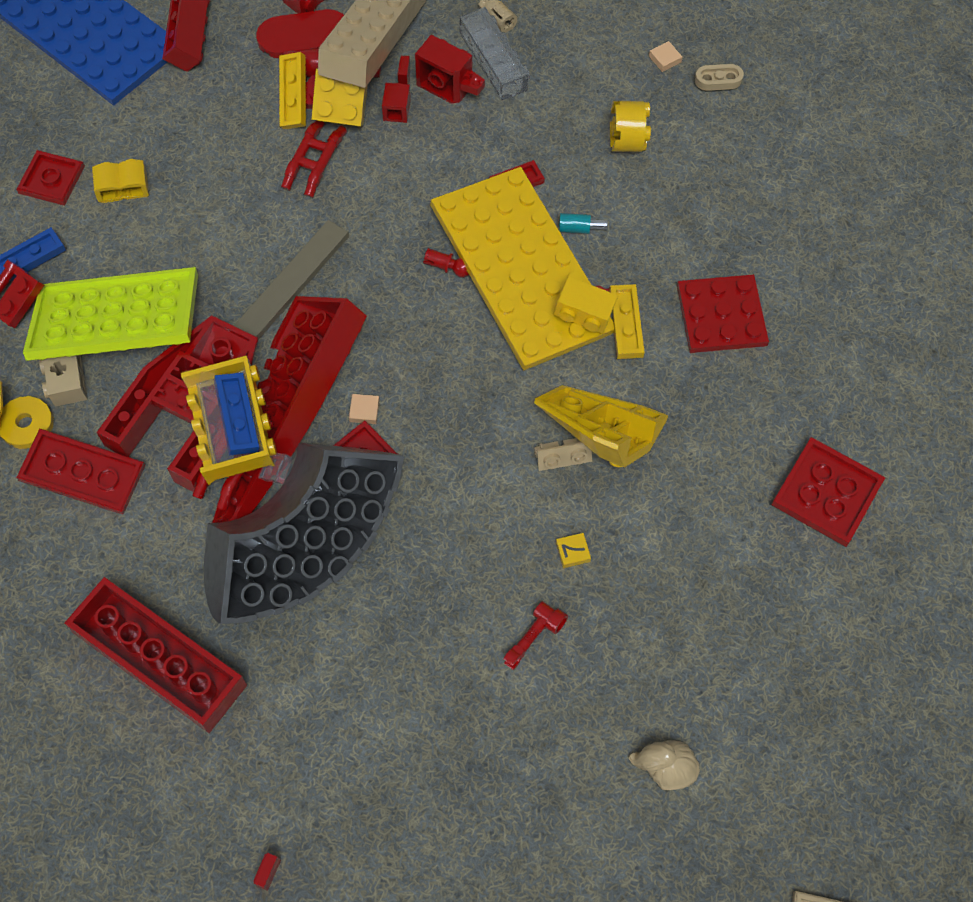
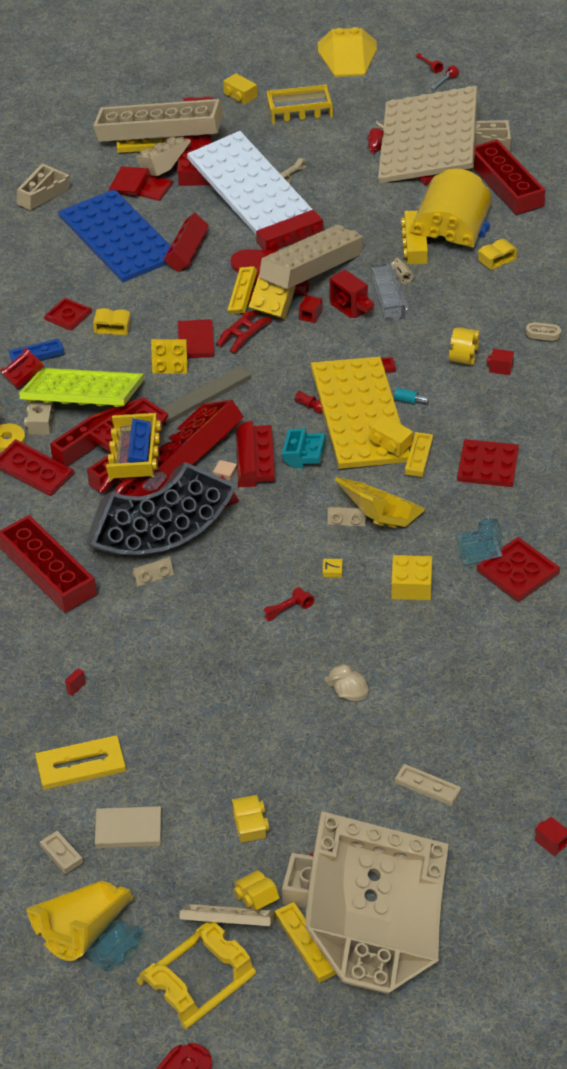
camera: 20 degrees right, 20 degrees down
(224, 228) = (169, 356): none -> yellow hinge
(249, 184) = (199, 337): none -> red tile
(327, 616) = (153, 571): none -> tan hinge
(399, 375) = (254, 454): none -> red brick
(404, 70) = (323, 292): red tile -> none
(466, 348) = (303, 448): none -> teal brick
(665, 56) = (511, 314): light nougat tile -> none
(682, 139) = (500, 361): none -> red brick
(693, 546) = (411, 577): none -> yellow brick
(775, 465) = (482, 544): none -> clear light blue brick

